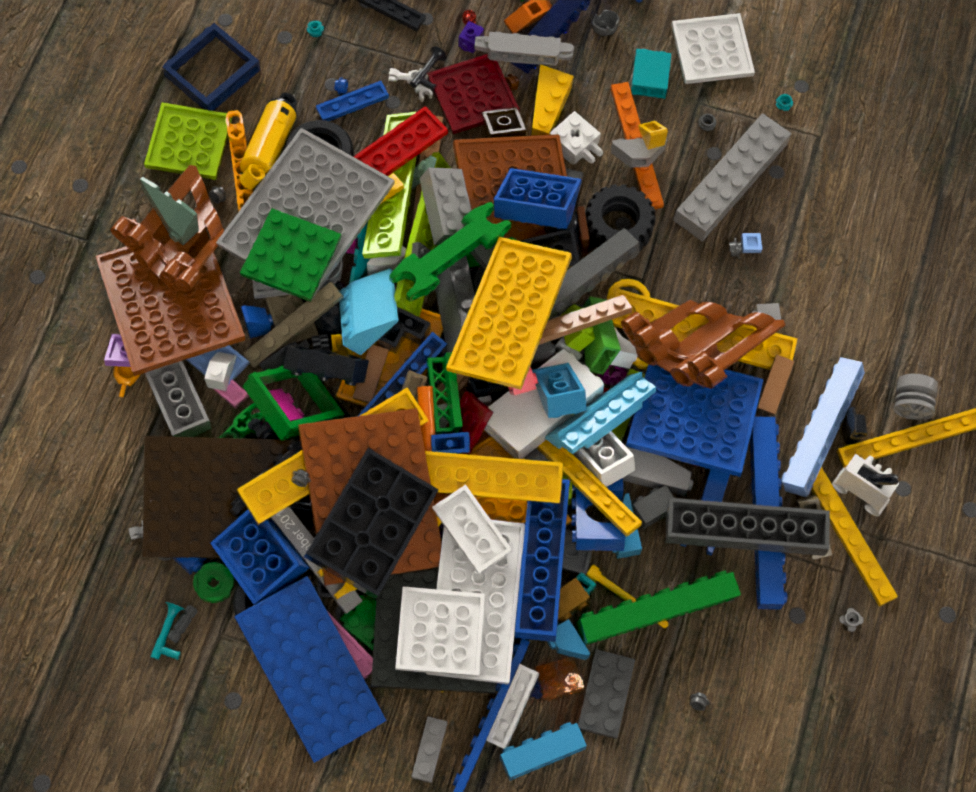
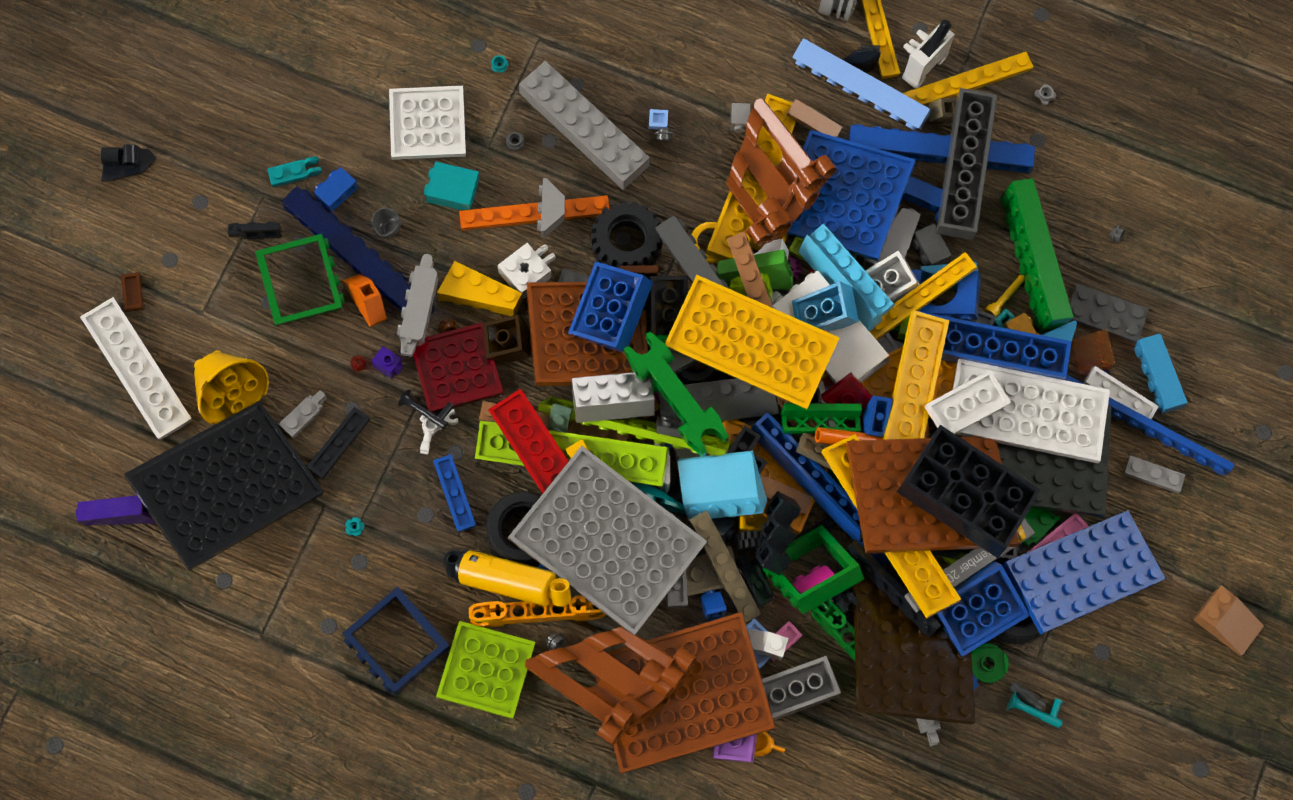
camera: 85 degrees left, 5 degrees up
(175, 215) = (603, 675): sand green wedge -> none
(291, 254) = (658, 556): green plate -> none
(300, 478) = (919, 554): dark grey plate -> none
(341, 86) = (432, 503): blue plate -> none
(440, 631) = (1065, 443): white plate -> none
(653, 134) = (540, 188): yellow slope -> none

